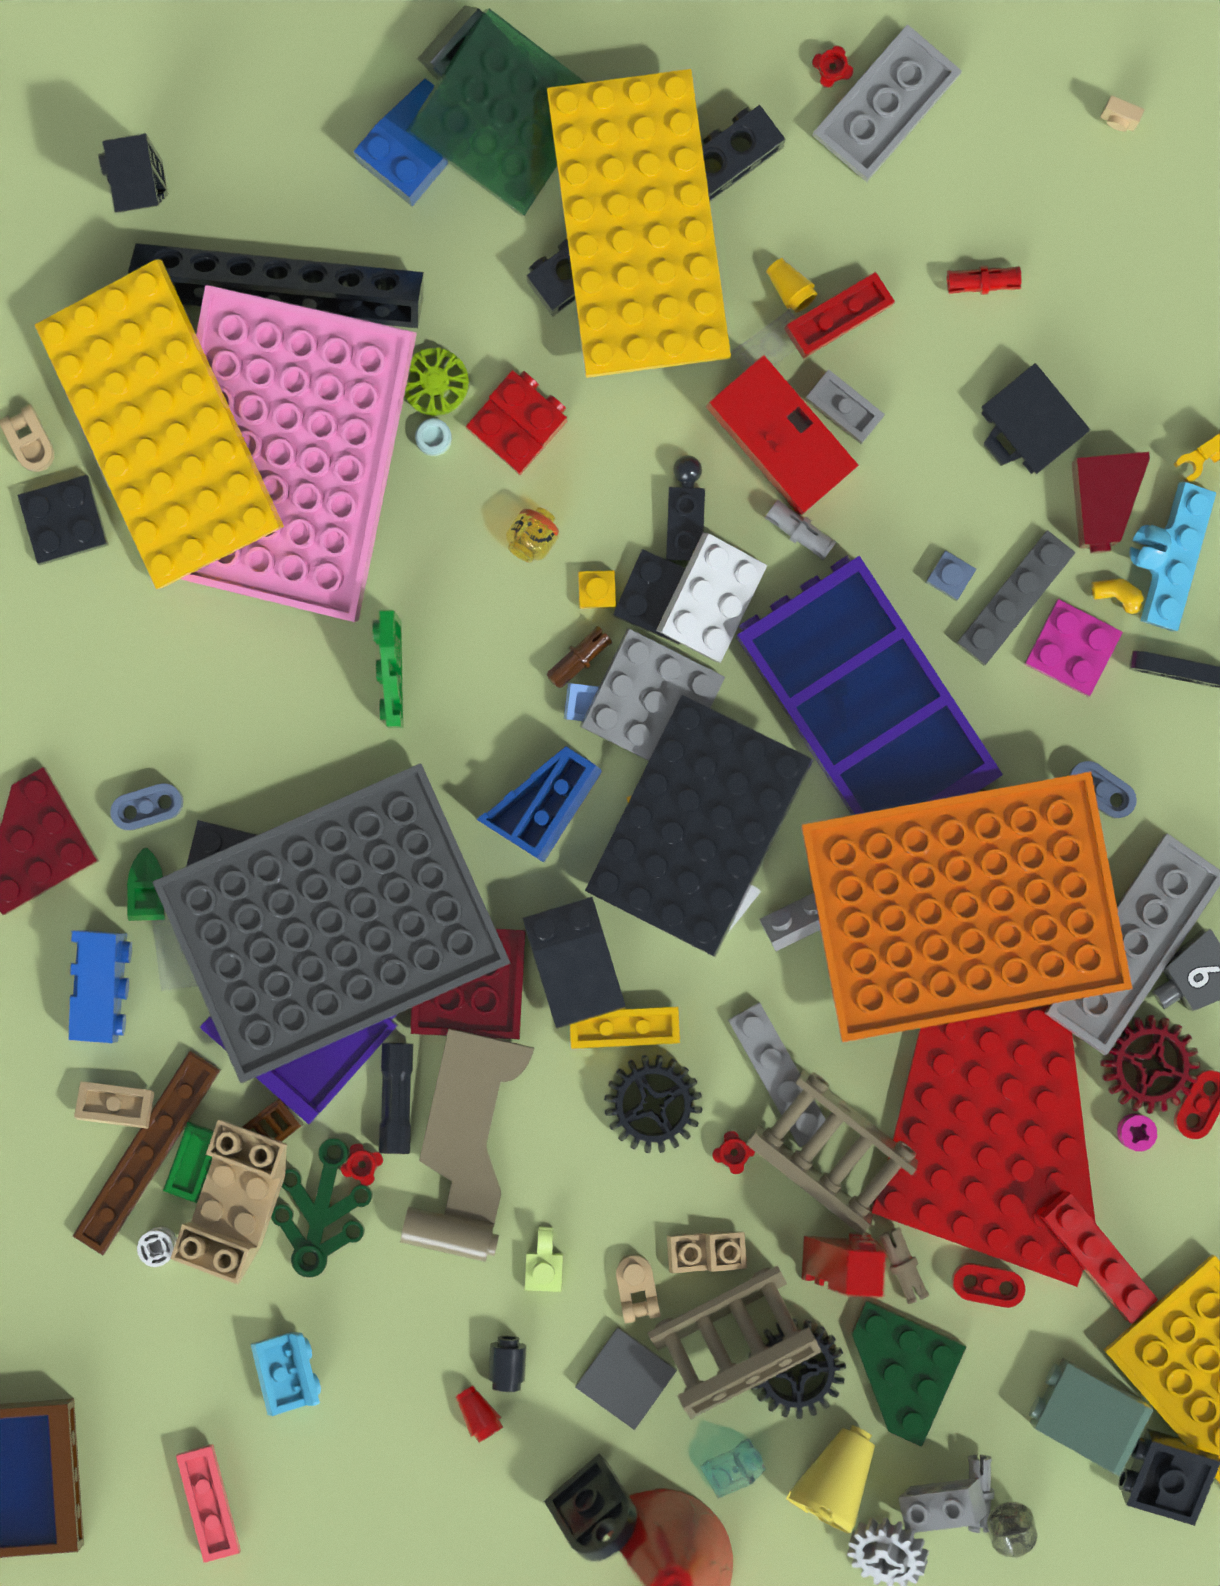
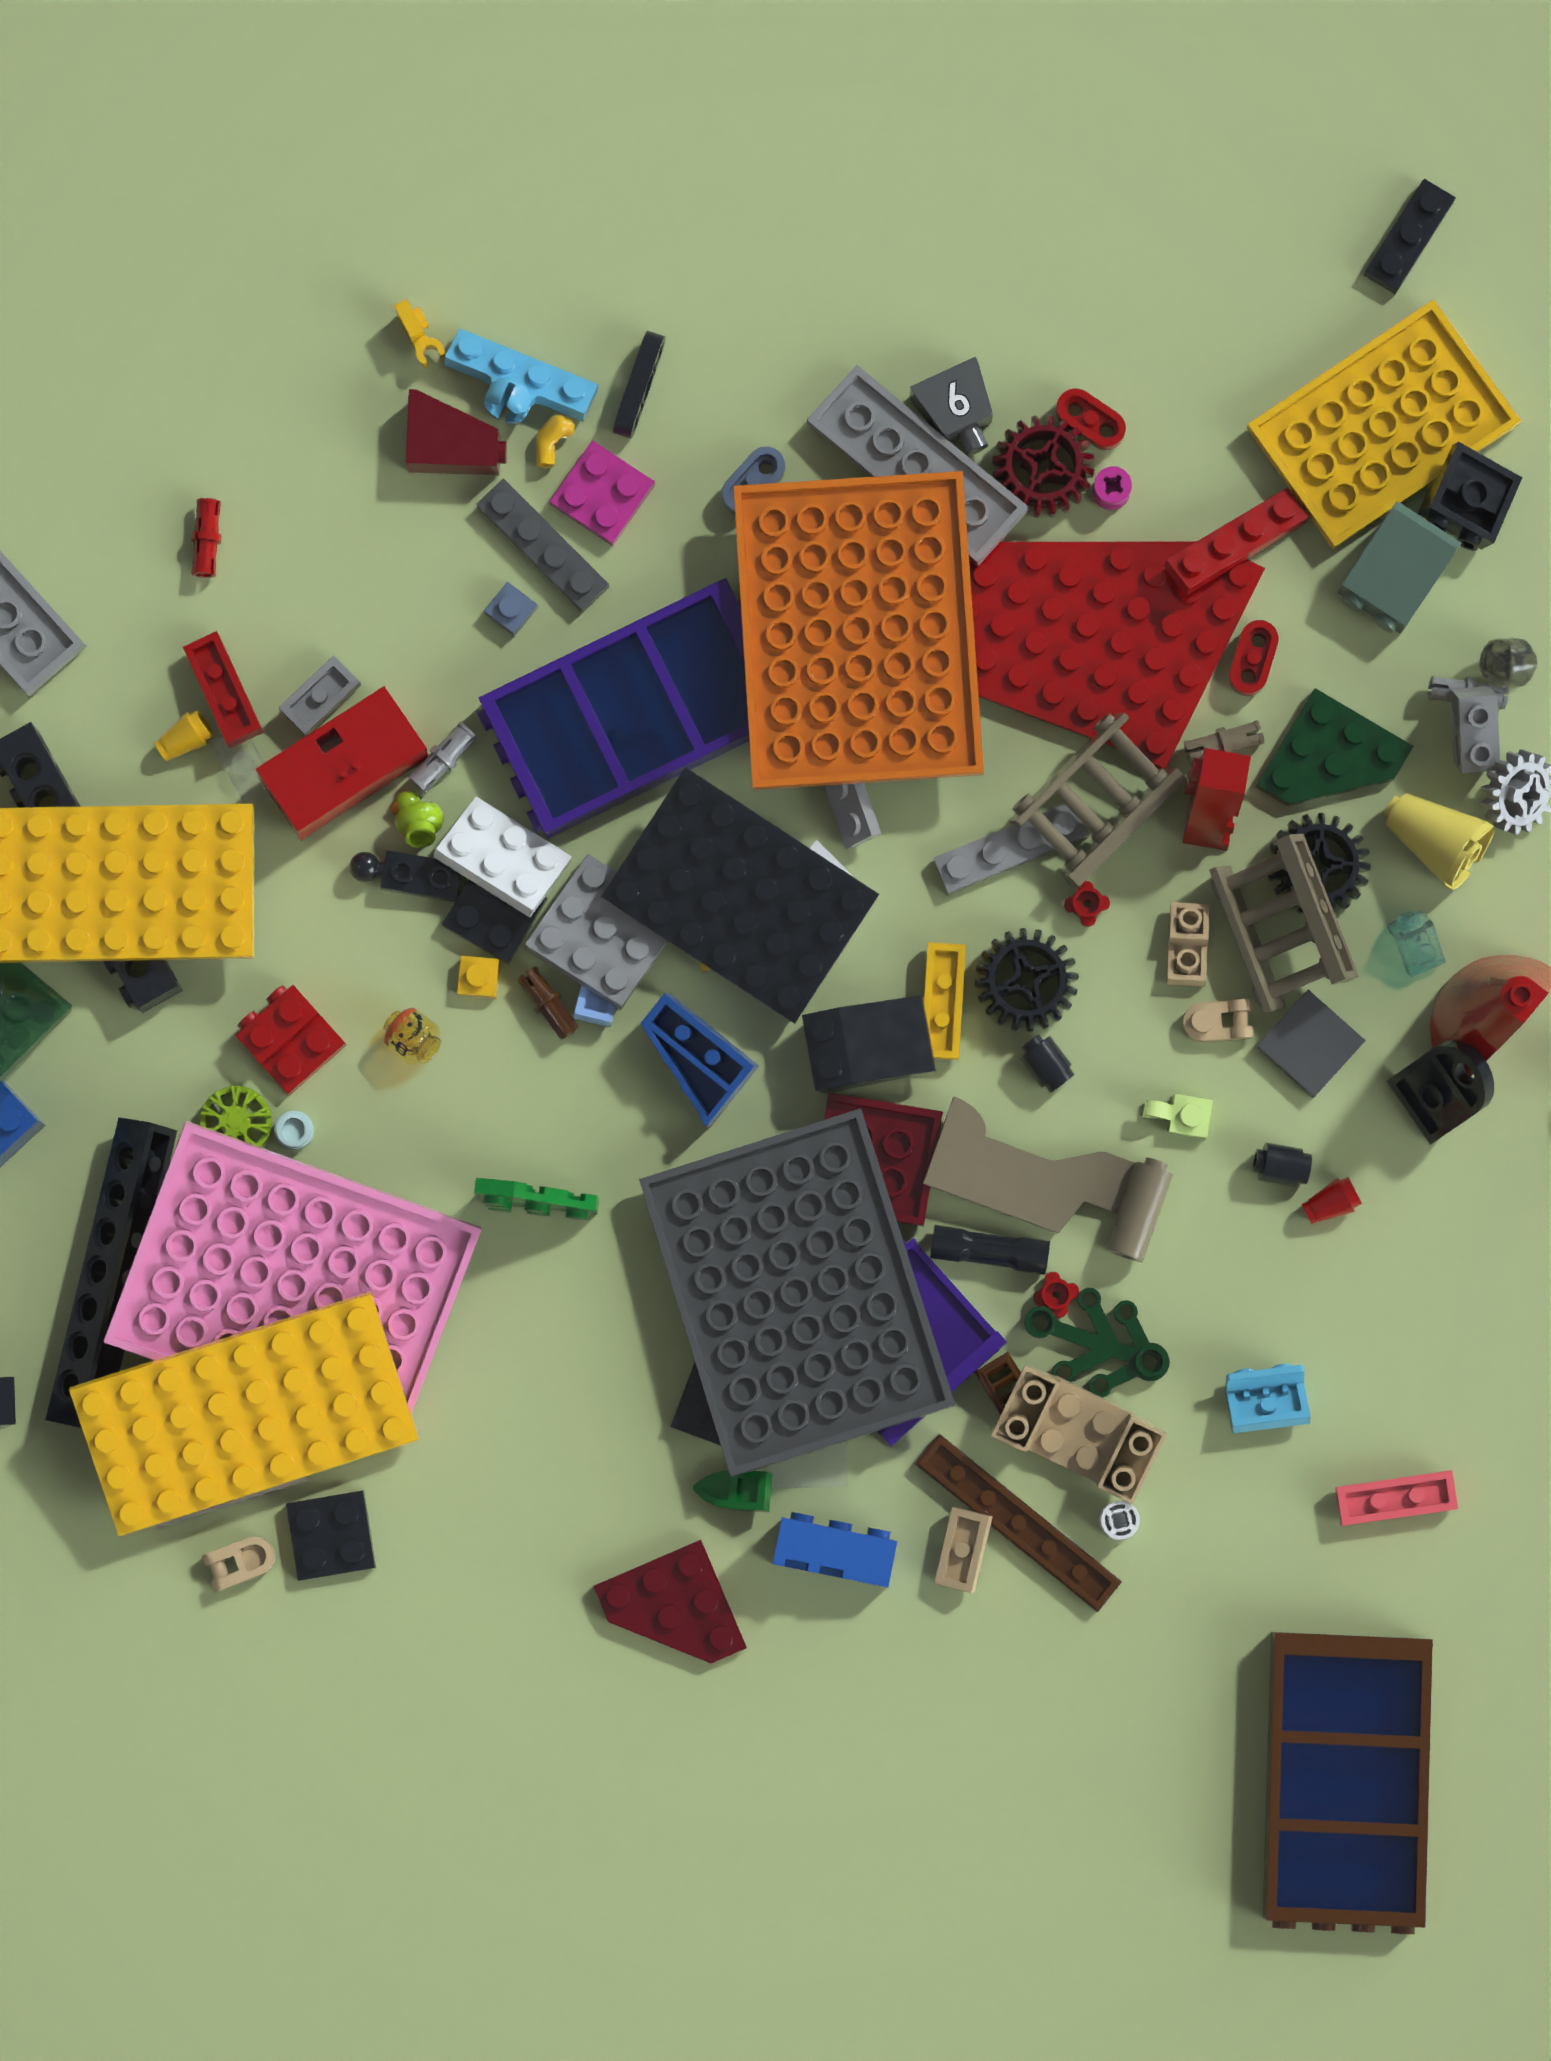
camera: 80 degrees left, 5 degrees down
(147, 806) = (649, 1479): sand blue plate -> none
(190, 1163) = (1034, 1475): green tile -> none
(577, 1131) = (1046, 1062): none -> black brick
(737, 512) = (417, 819): none -> lime animal
(1033, 421) = (360, 504): black piece -> none
(1121, 114) = (52, 376): tan plate -> none

